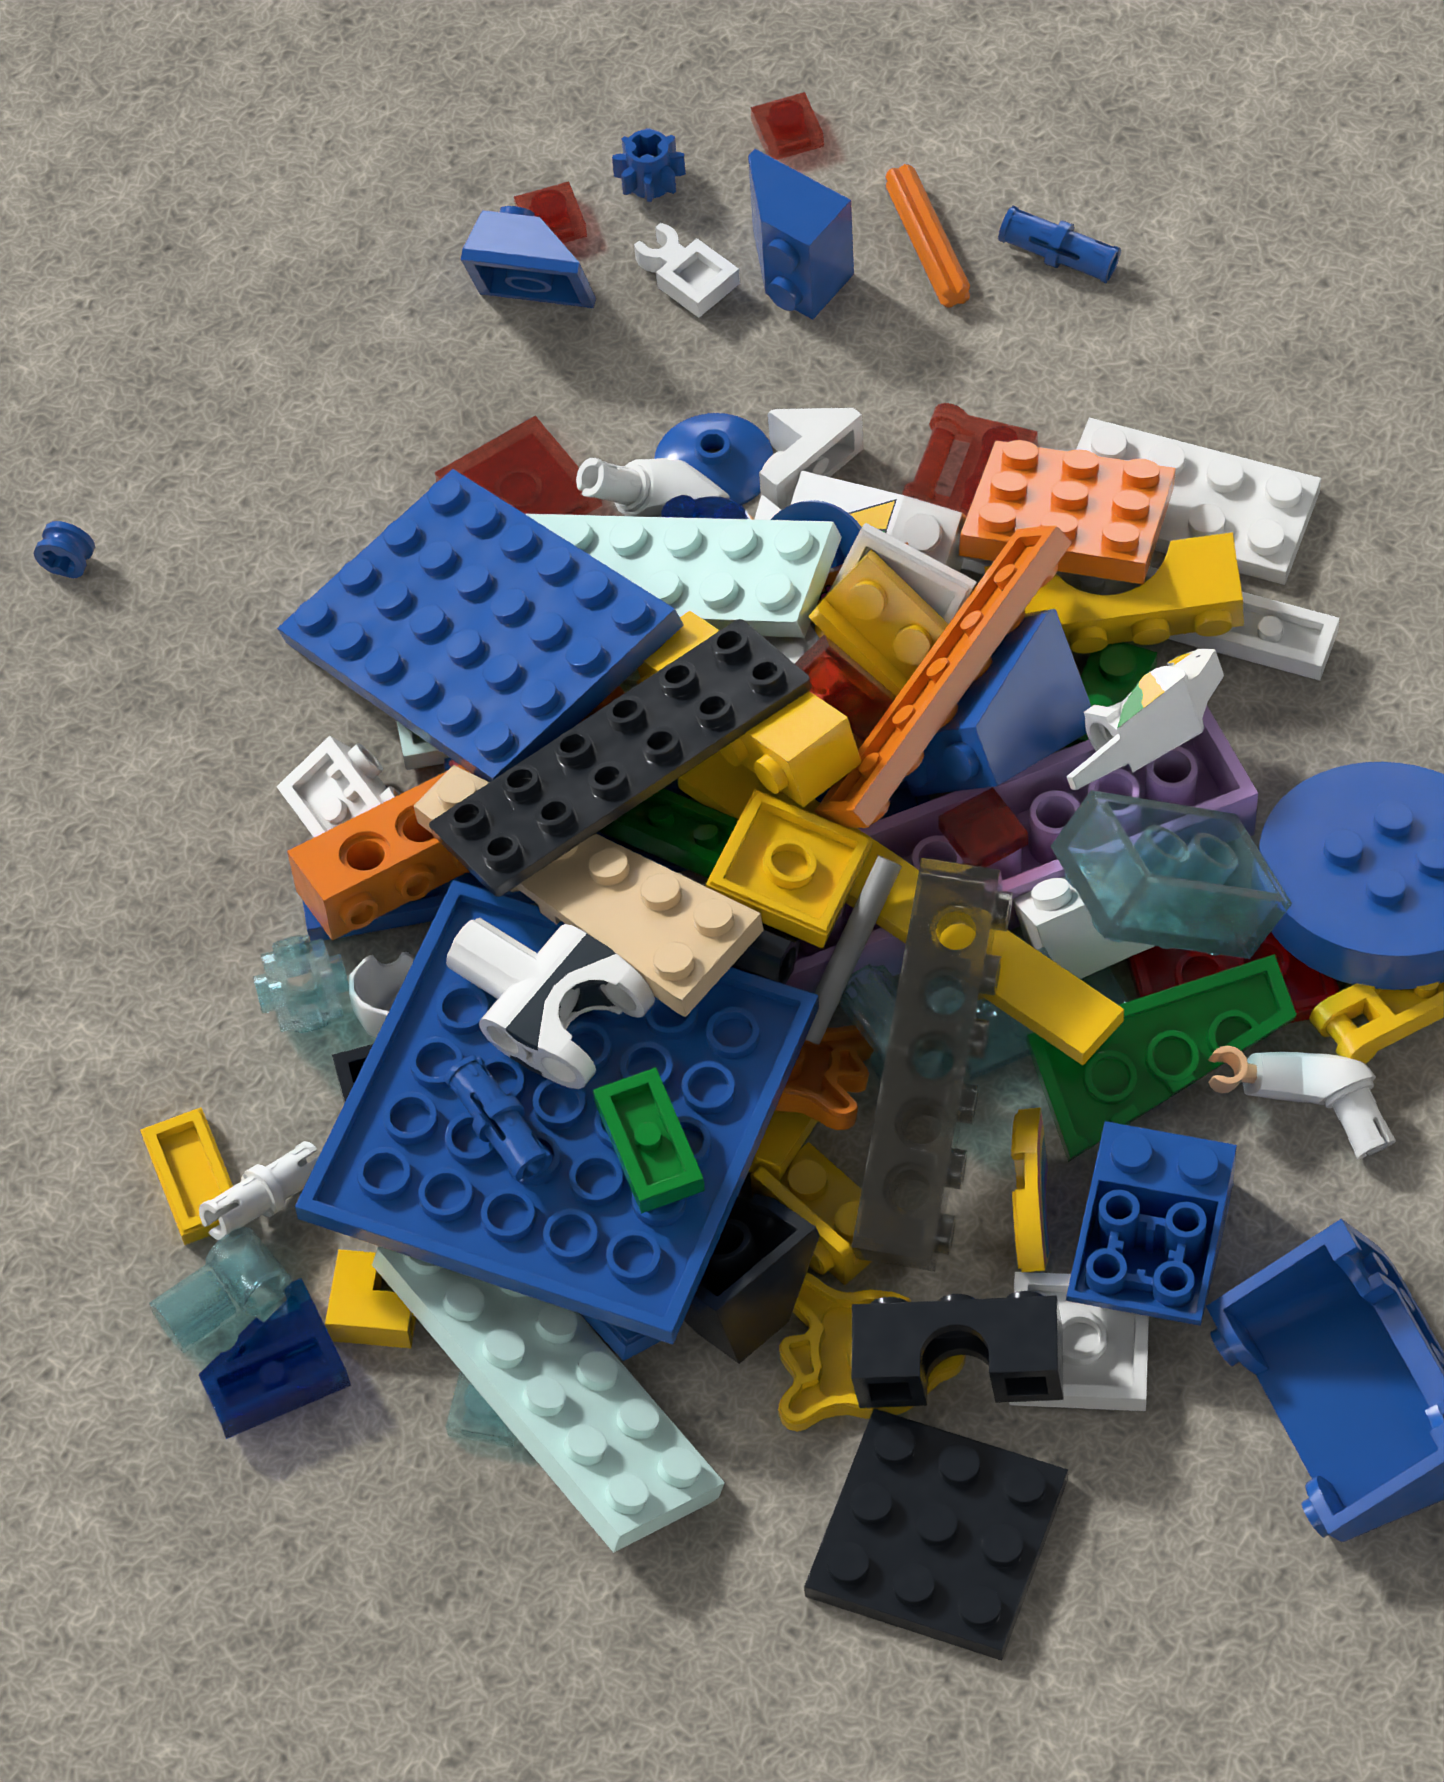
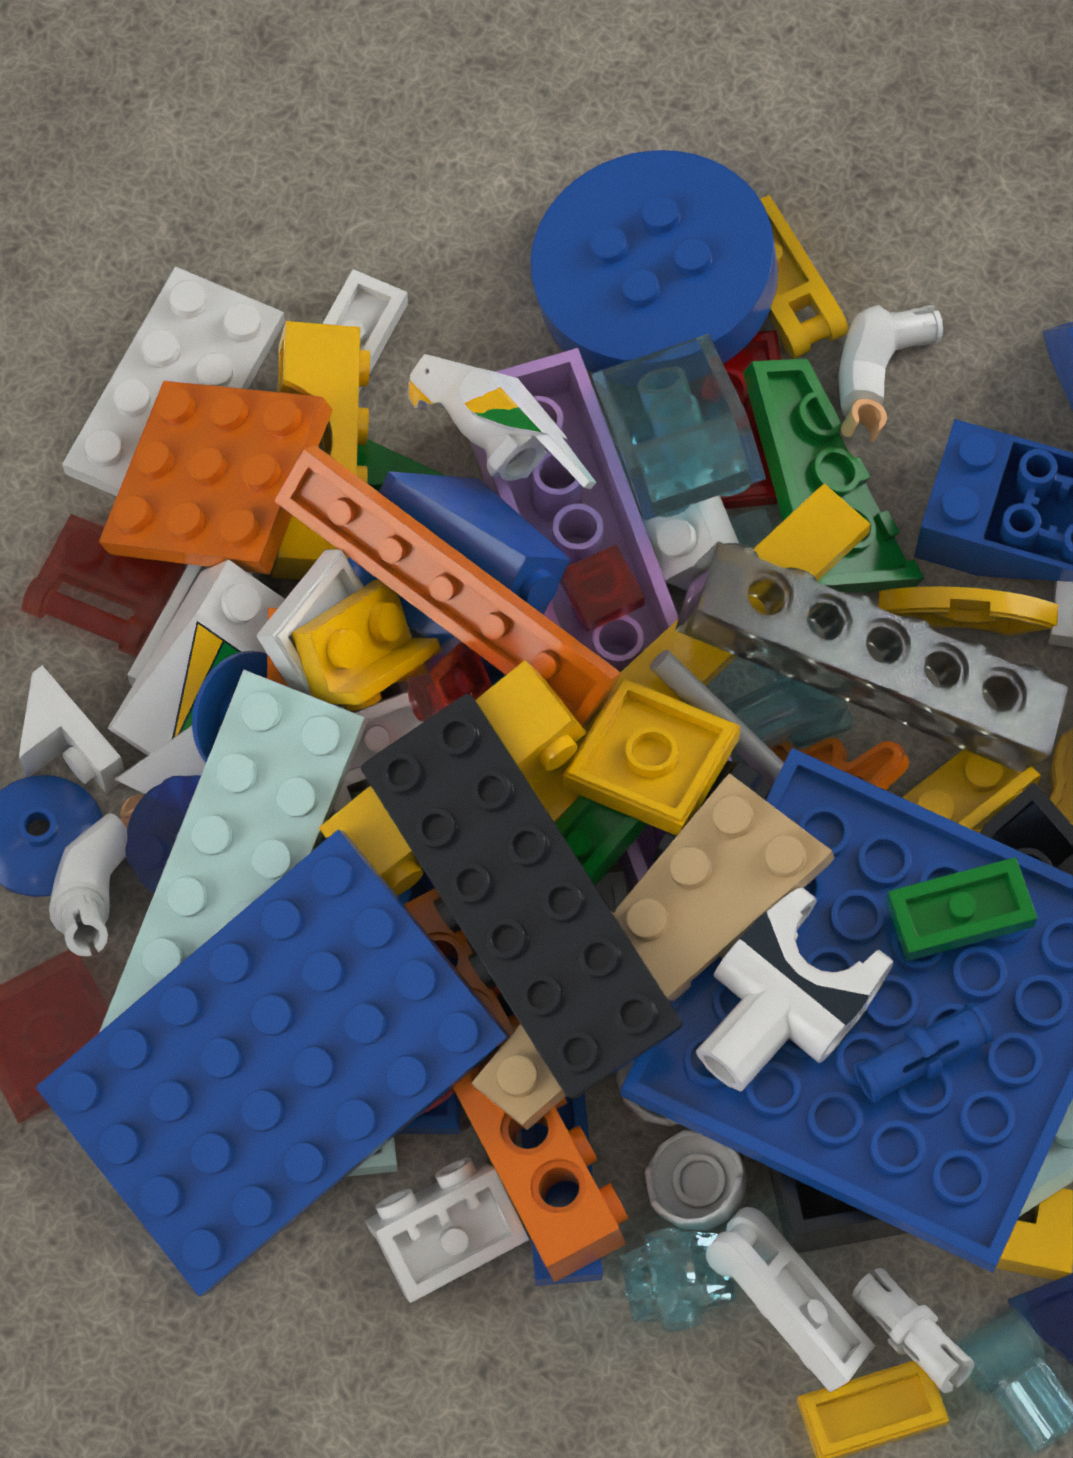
camera: 90 degrees left, 10 degrees up
(283, 1079) = (790, 1297): none -> white plate

